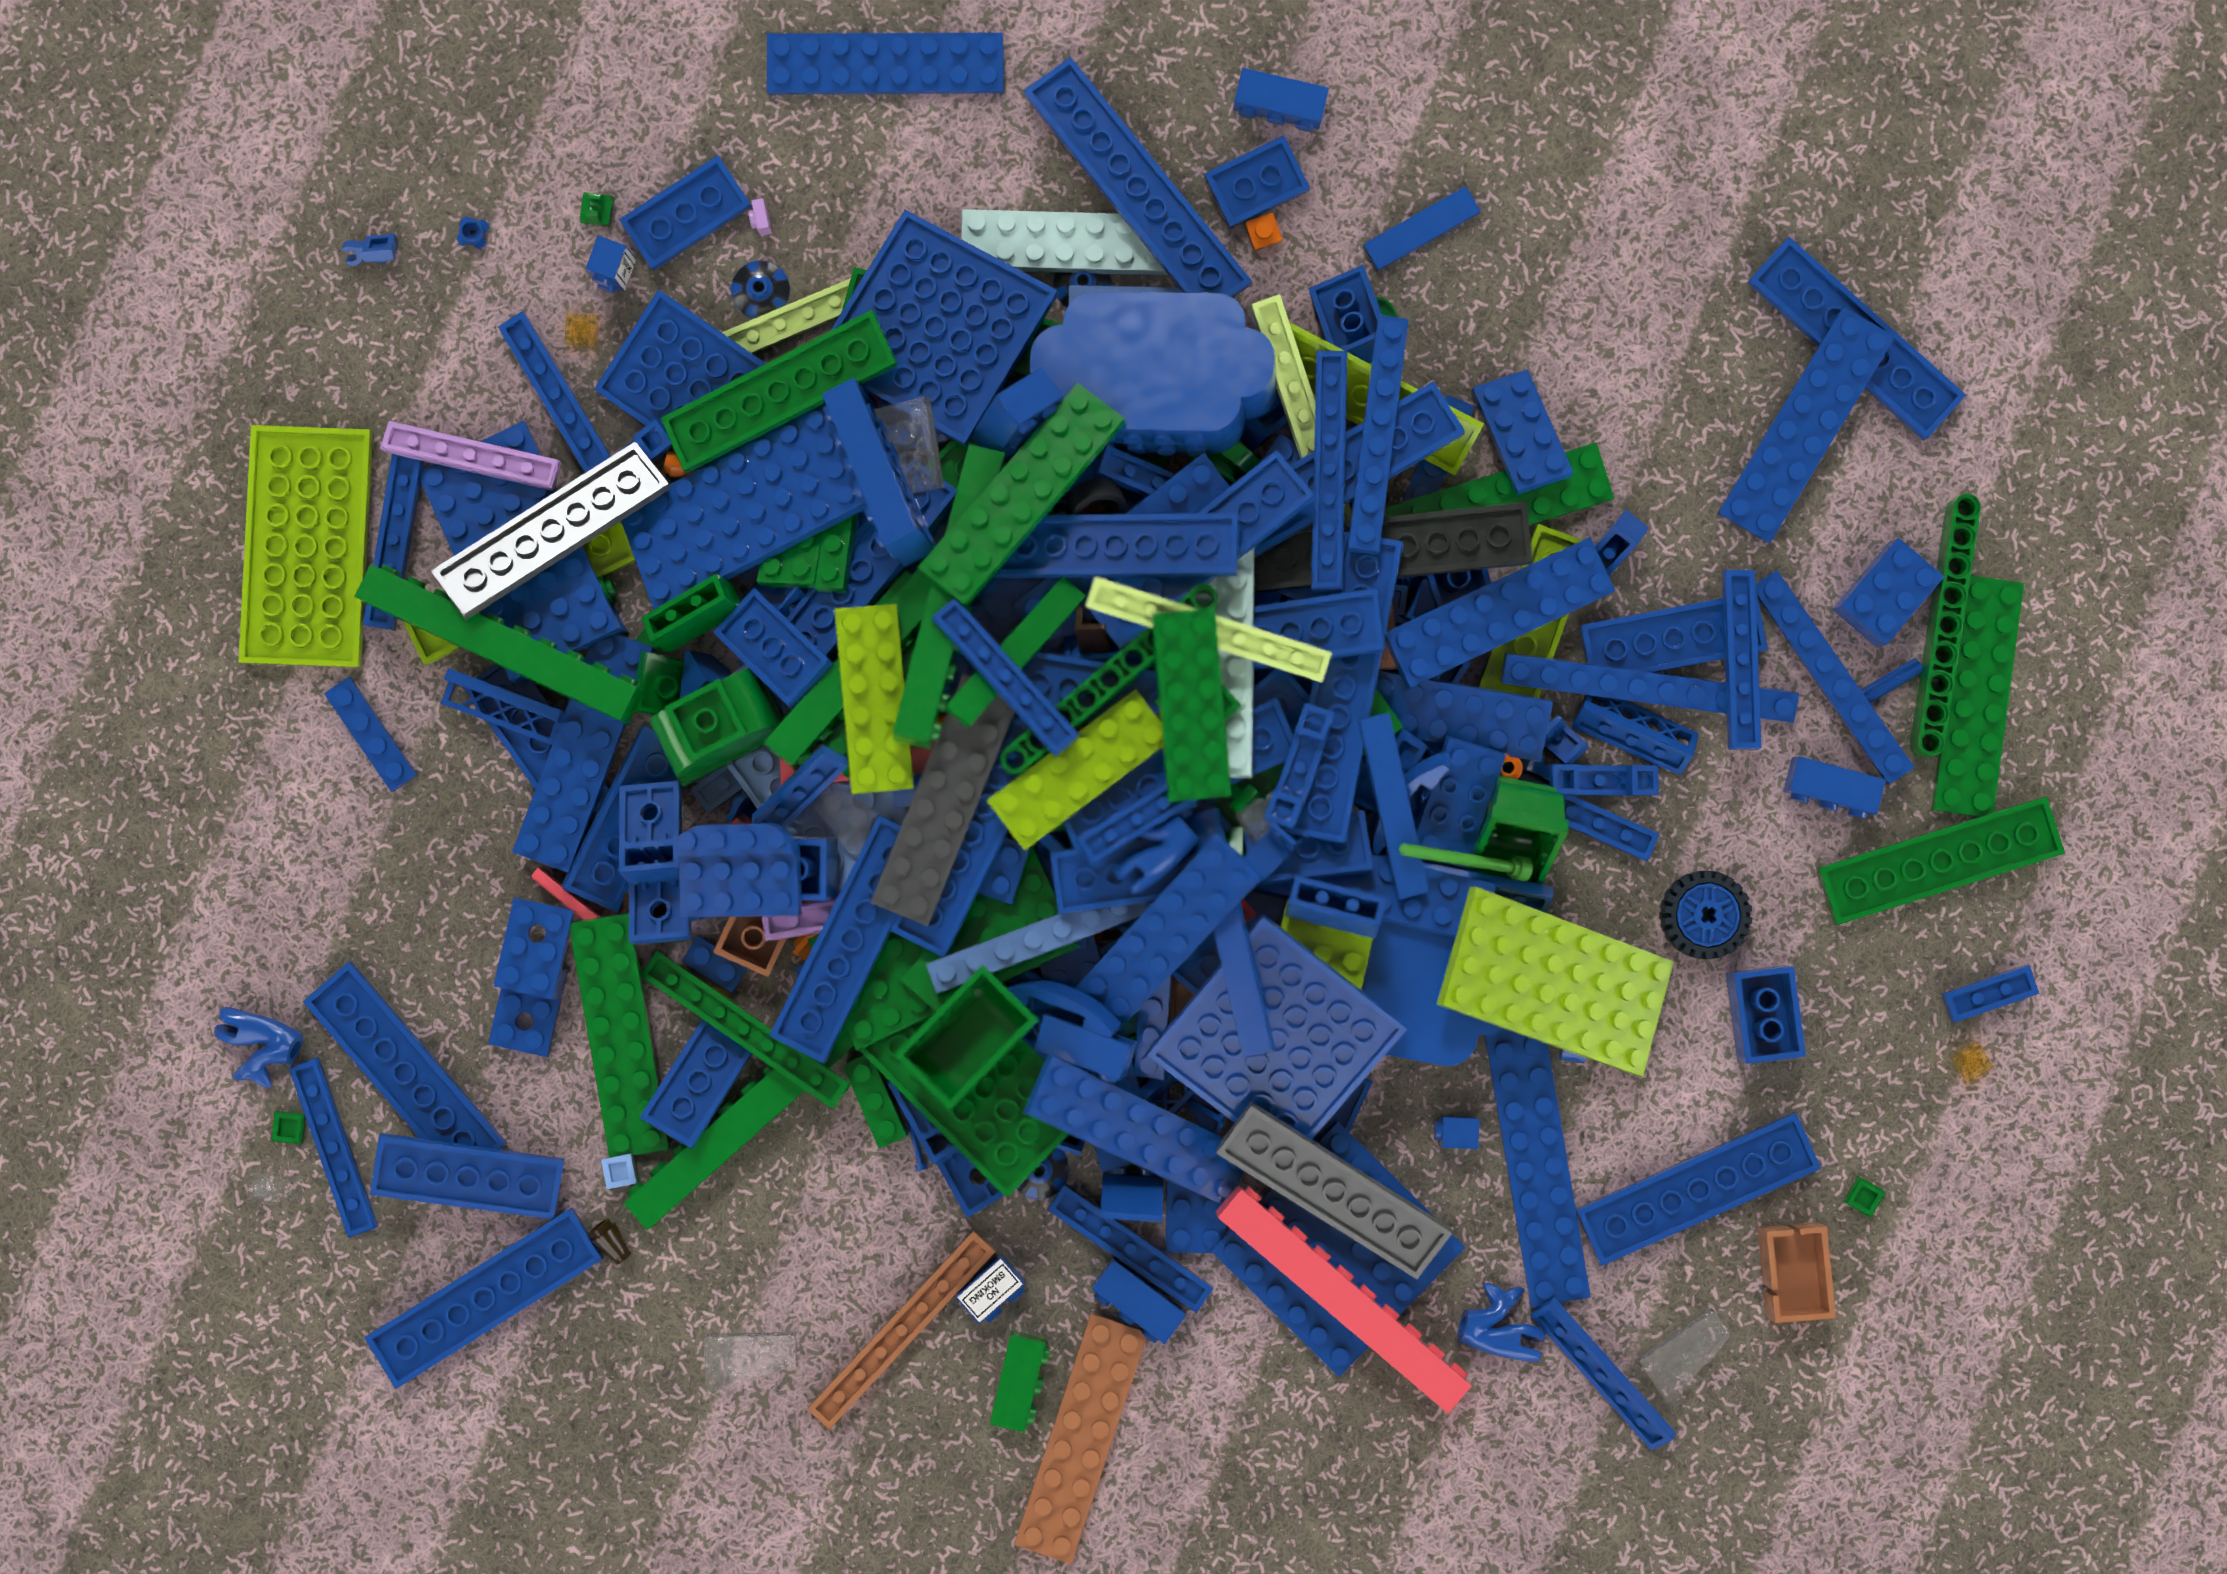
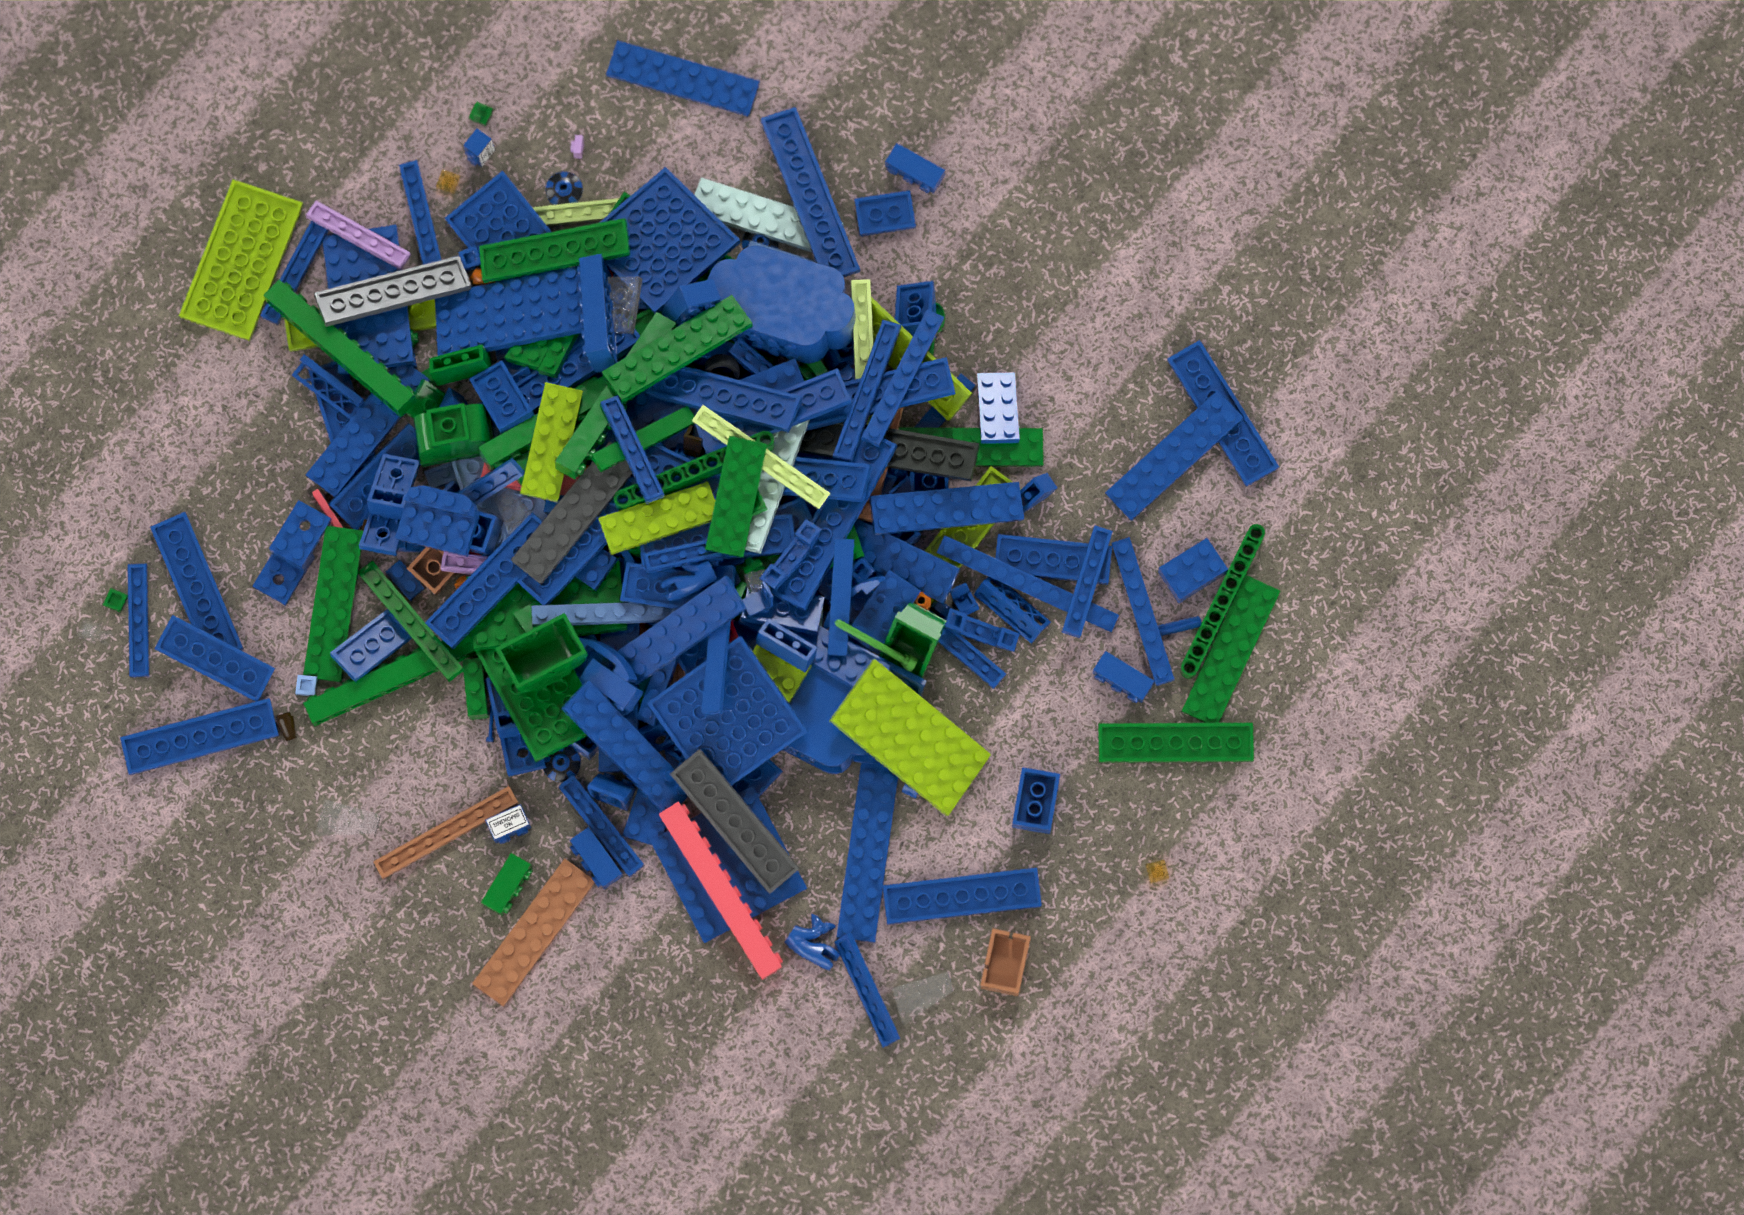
camera: 25 degrees right, 10 degrees down
(281, 1042) = (128, 547): blue piece -> none
(370, 734) = (242, 382): blue plate -> none
(374, 249) = (340, 97): blue plate -> none
(466, 226) = (397, 105): blue plate -> none
(685, 213) = (533, 131): blue plate -> none
(1263, 231) = (880, 244): orange plate -> none
(1421, 228) = (977, 270): blue tile -> none
(1457, 1132) = (824, 816): blue brick -> none
(1683, 914) = (1015, 745): wheel -> none
(1864, 1196) = (1064, 933): green tile -> none
(1990, 993) = (1181, 832): blue plate -> none

